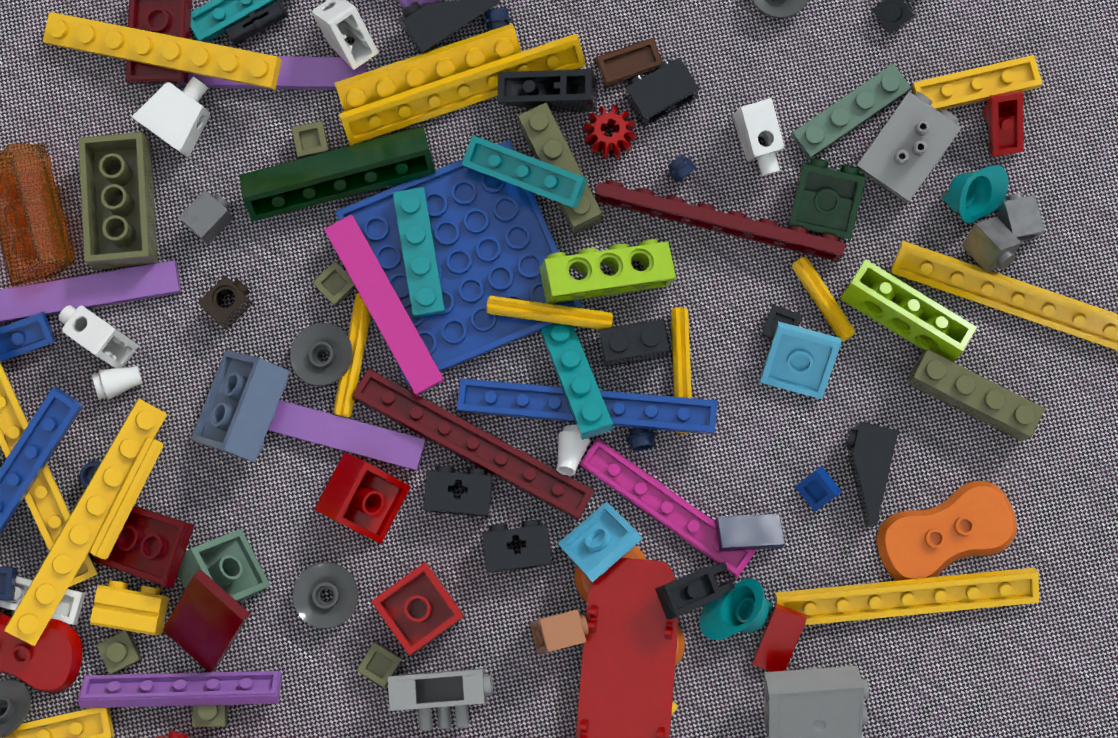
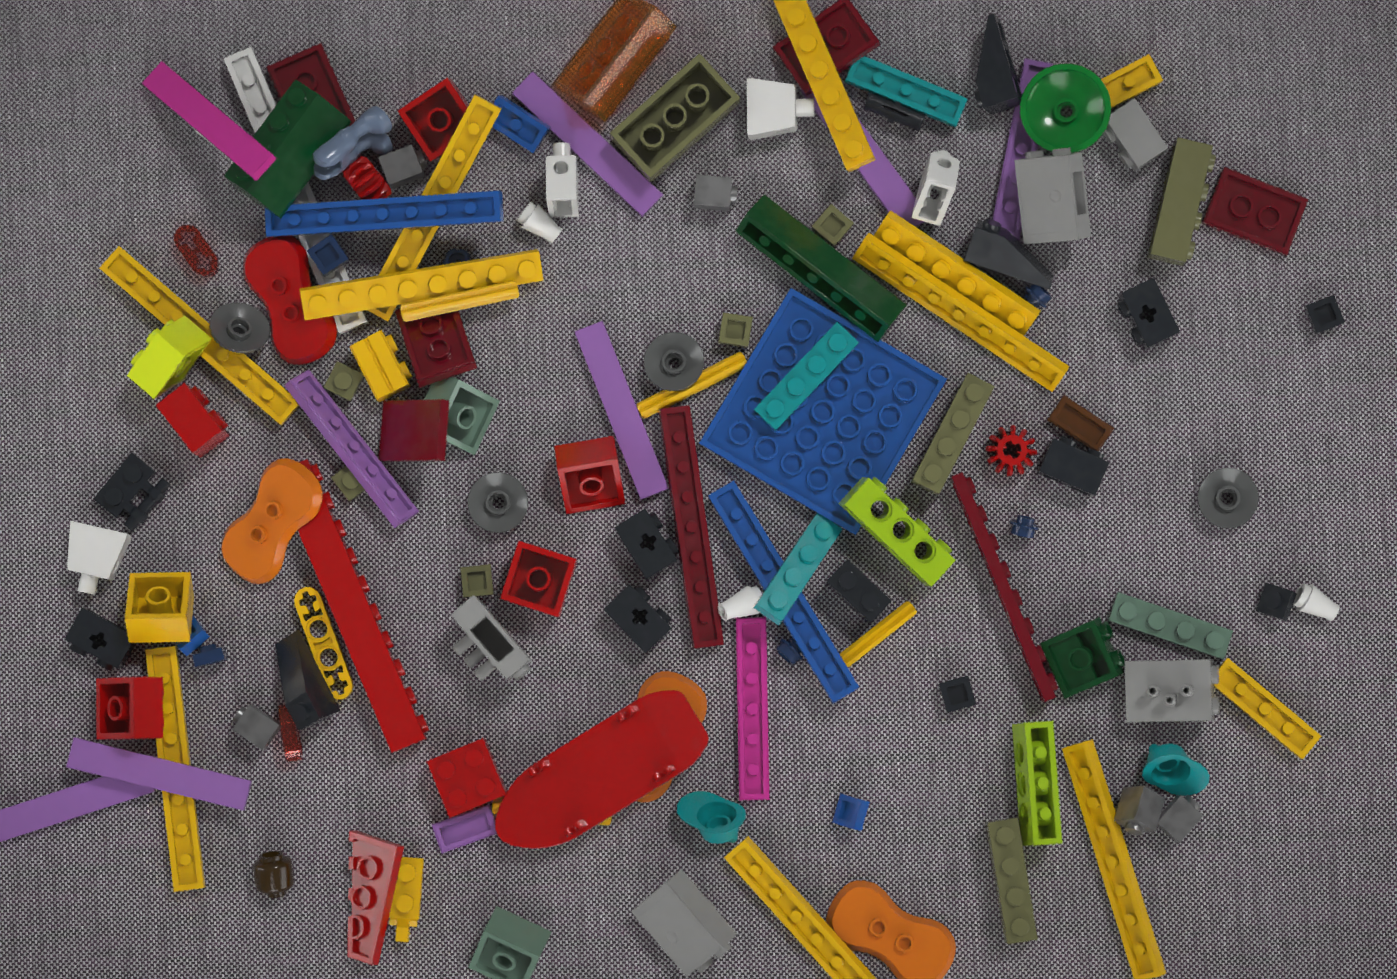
camera: 55 degrees right, 5 degrees up
(212, 302) = (650, 249): dark brown brick -> none
(240, 405) = (589, 331): sand blue slope -> none
(384, 305) = (746, 380): dark pink tile -> none
(524, 171) = (926, 411): teal plate -> none
(549, 313) = (833, 511): yellow axle -> none
(559, 631) = (599, 696): nougat slope -> none
(560, 89) = (1009, 380): black slope -> none
(600, 541) = (688, 676): medium azure plate -> none
(692, 591) = (702, 772): black hinge -> none
(749, 532) = (779, 784): tile -> none
(760, 121) = (1099, 557): white torso -> none
(779, 639) = (715, 863): red tile -> none
(800, 360) = (938, 727): medium azure plate -> none
(823, 298) = (1002, 711): yellow axle -> none
(870, 465) = (903, 835): black slope -> none
(1005, 123) = (1246, 753): red slope -> none

